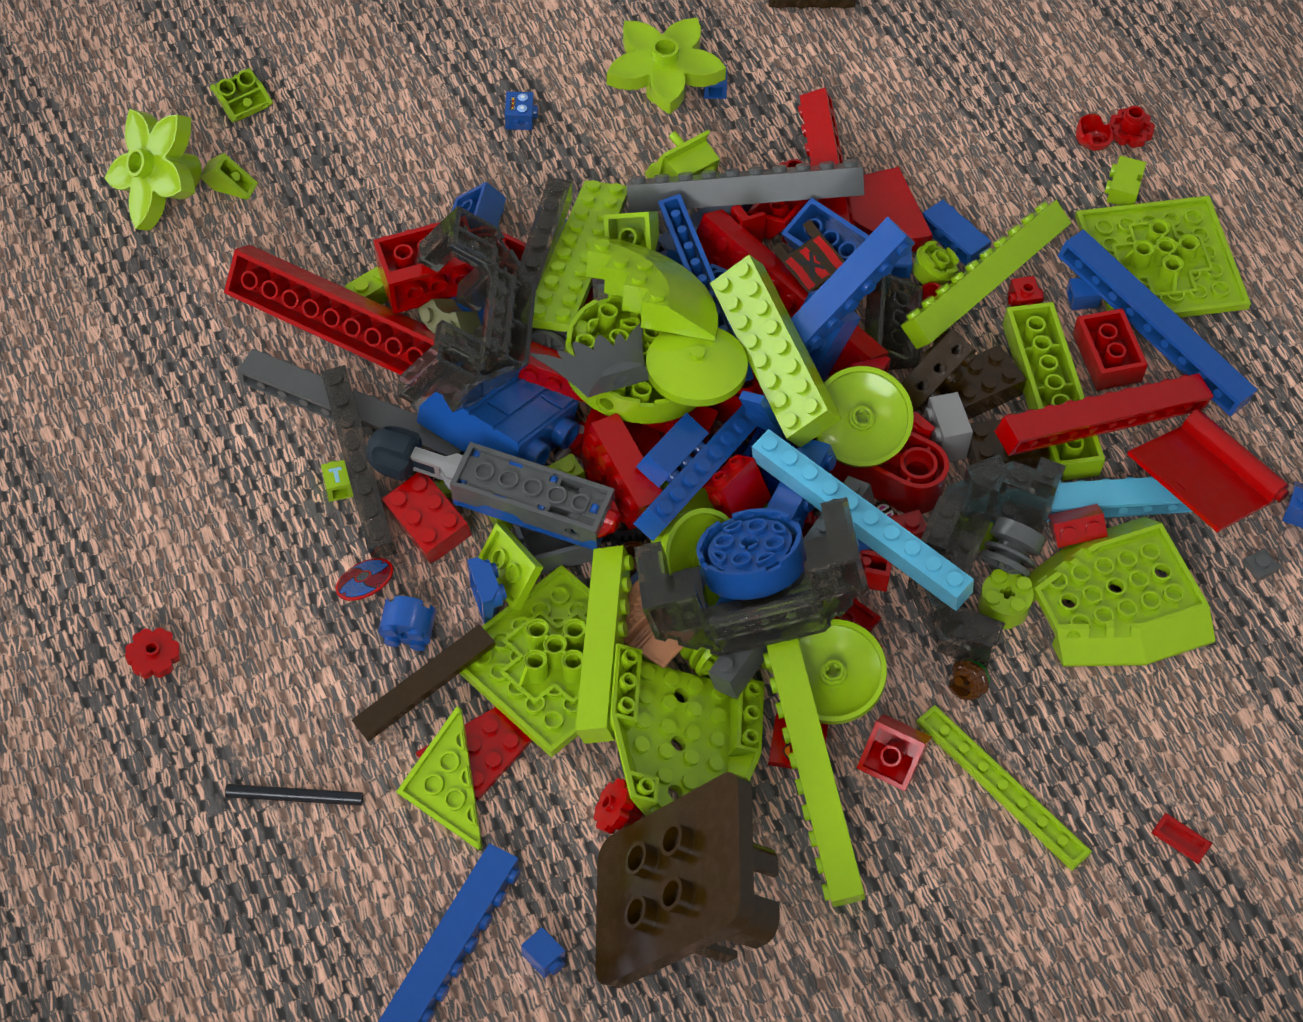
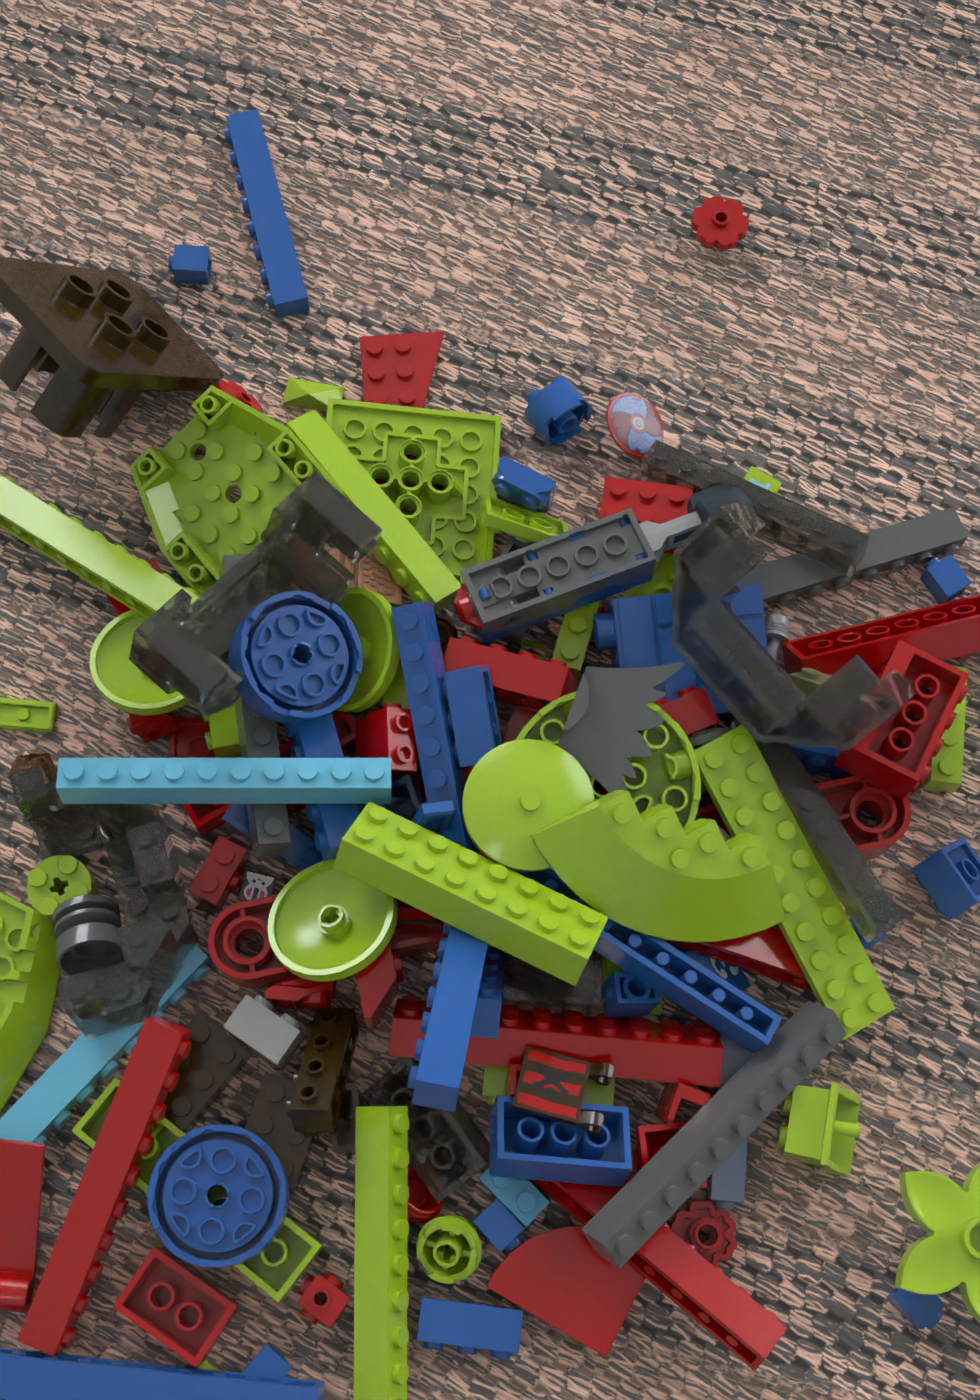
camera: 135 degrees right, 15 degrees up
(291, 345) = (944, 579): none -> blue brick
(294, 794) = (500, 229): black piece -> none
(423, 682) = (492, 382): dark brown tile -> none
(444, 783) = (392, 320): lime tile -> none
(551, 785) = (310, 394): none -> lime slope
(636, 228) = (769, 956): lime slope -> none
(893, 752) = (50, 655): red slope -> none
(1045, 378) = (248, 1217): none -> blue brick
(1077, 525) = (44, 1033): red brick -> none

